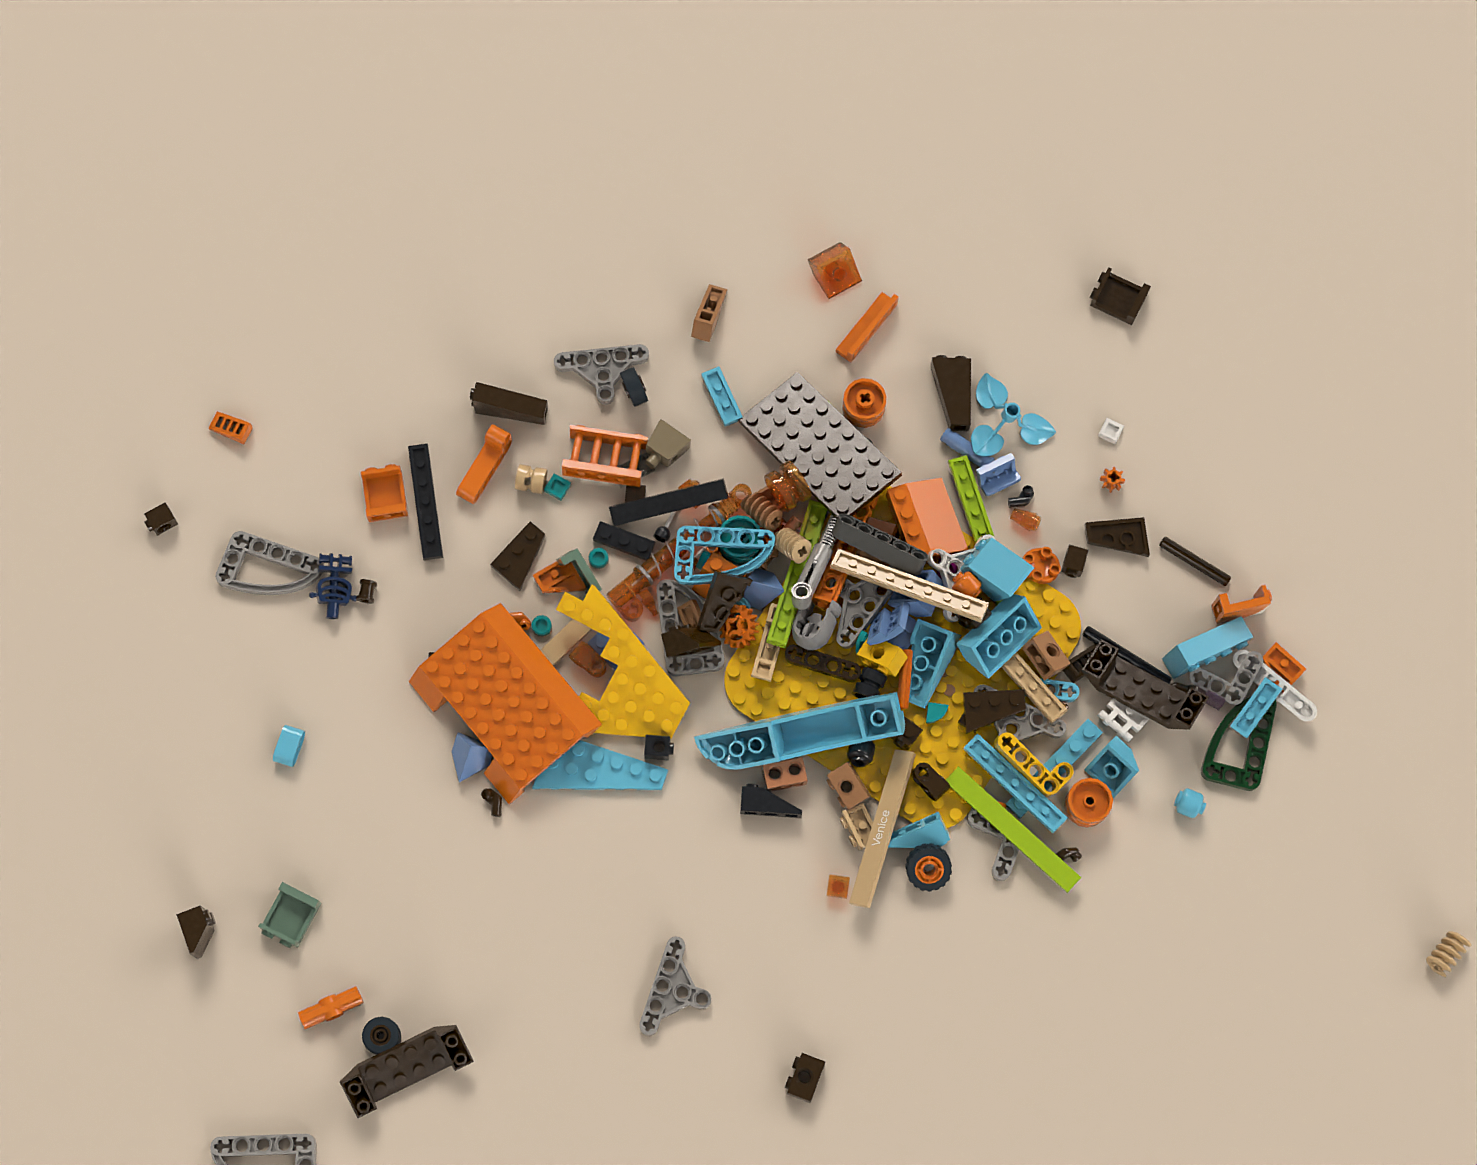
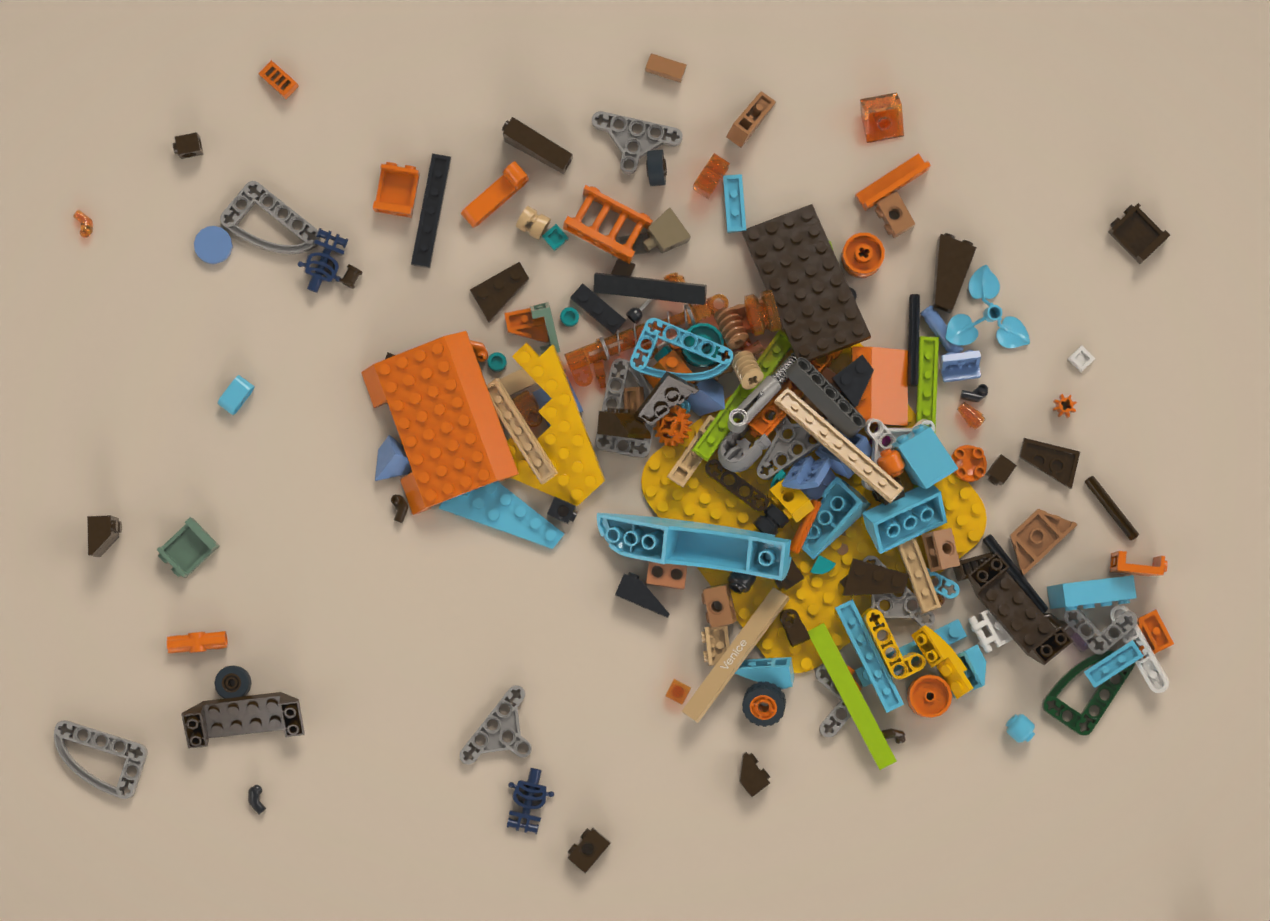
camera: 20 degrees right, 10 degrees up
(80, 628) = (86, 223): none -> clear orange arm
(217, 607) = (213, 245): none -> medium blue tile
(443, 1149) = (253, 799): none -> black arm
(590, 683) = (521, 432): none -> tan tile
(609, 293) = (665, 68): none -> medium nougat slope
(689, 377) = (711, 176): none -> clear orange brick
(724, 1030) = (532, 782): none -> dark blue torso
(878, 345) = (894, 203): none -> medium nougat brick
(901, 518) = (854, 379): none -> black wing
(942, 944) = (751, 776): none -> dark brown slope
(943, 466) = (913, 340): none -> black axle
(1087, 758) = (942, 656): none -> yellow slope
(1135, 613) = (1037, 537): none -> medium nougat wing

